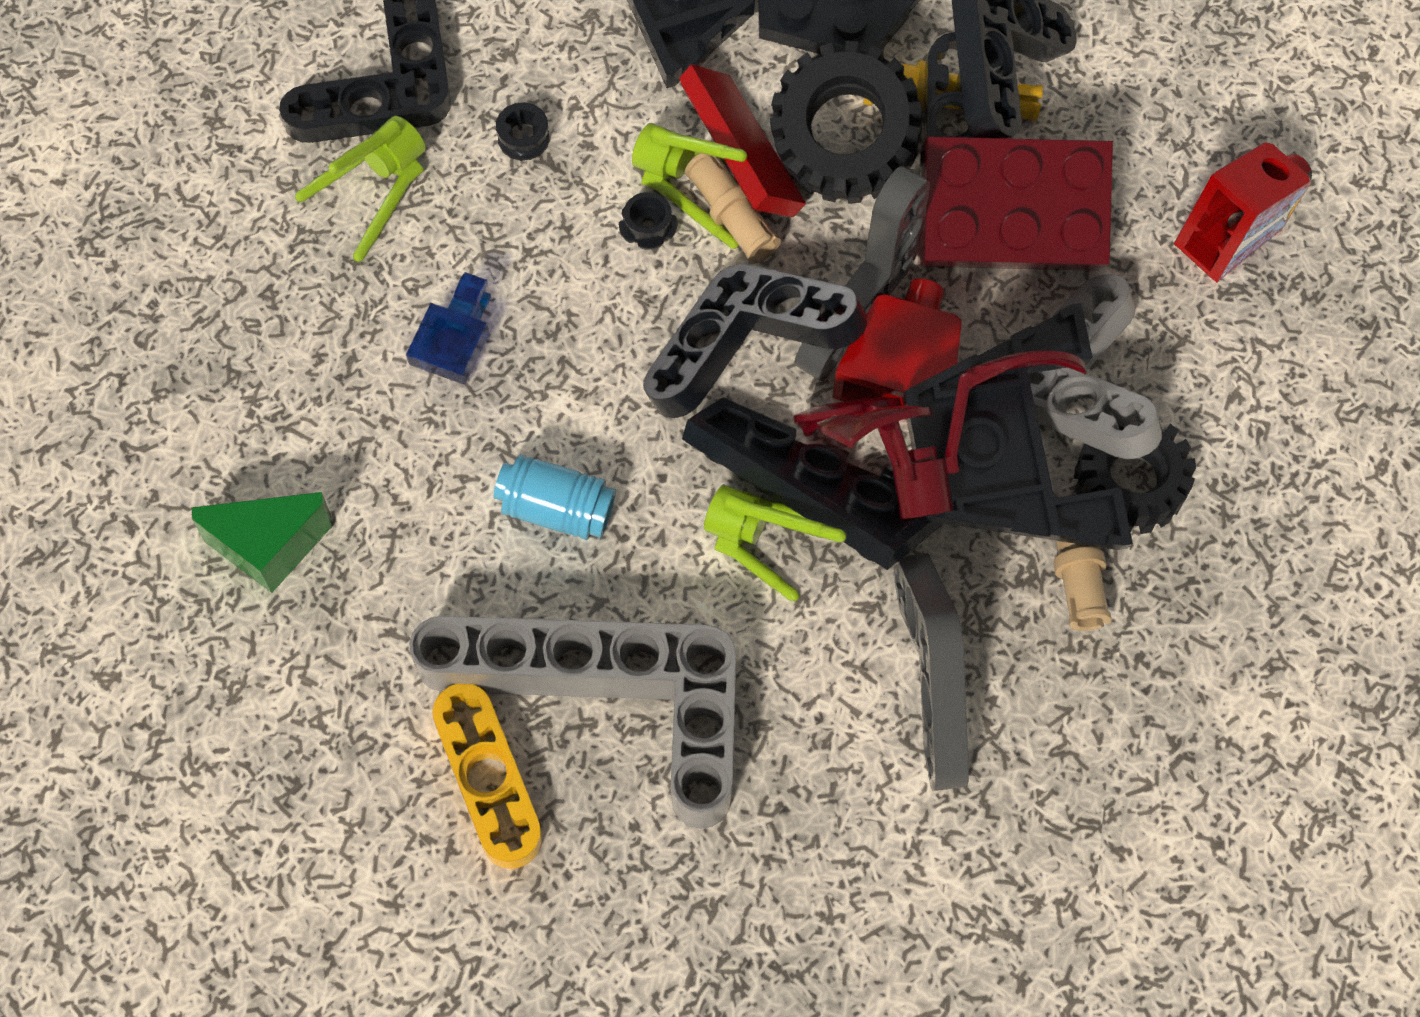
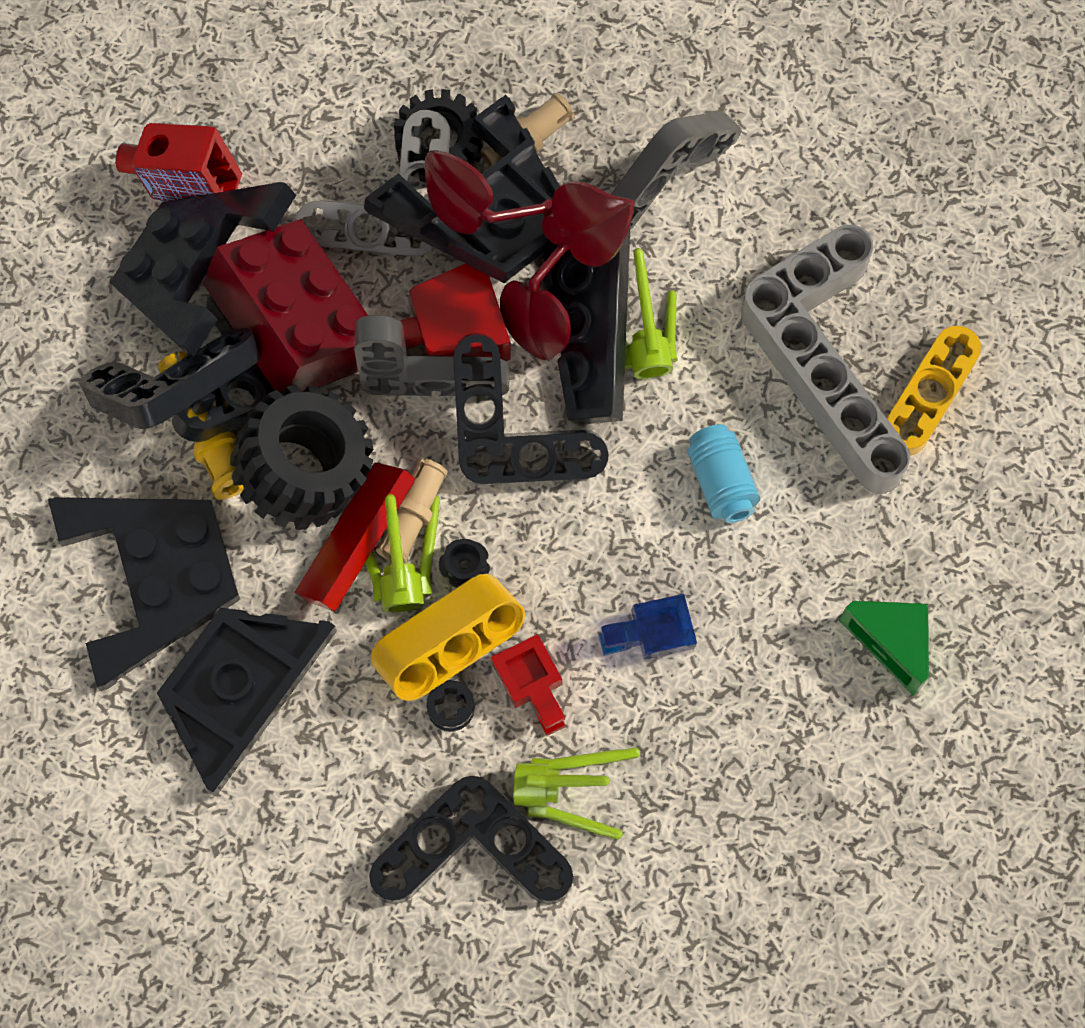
camera: 125 degrees left, 5 degrees up
(494, 204) = (530, 677): none -> red plate
(582, 154) = (447, 637): none -> yellow beam
(1149, 145) = (178, 249): none -> black wing

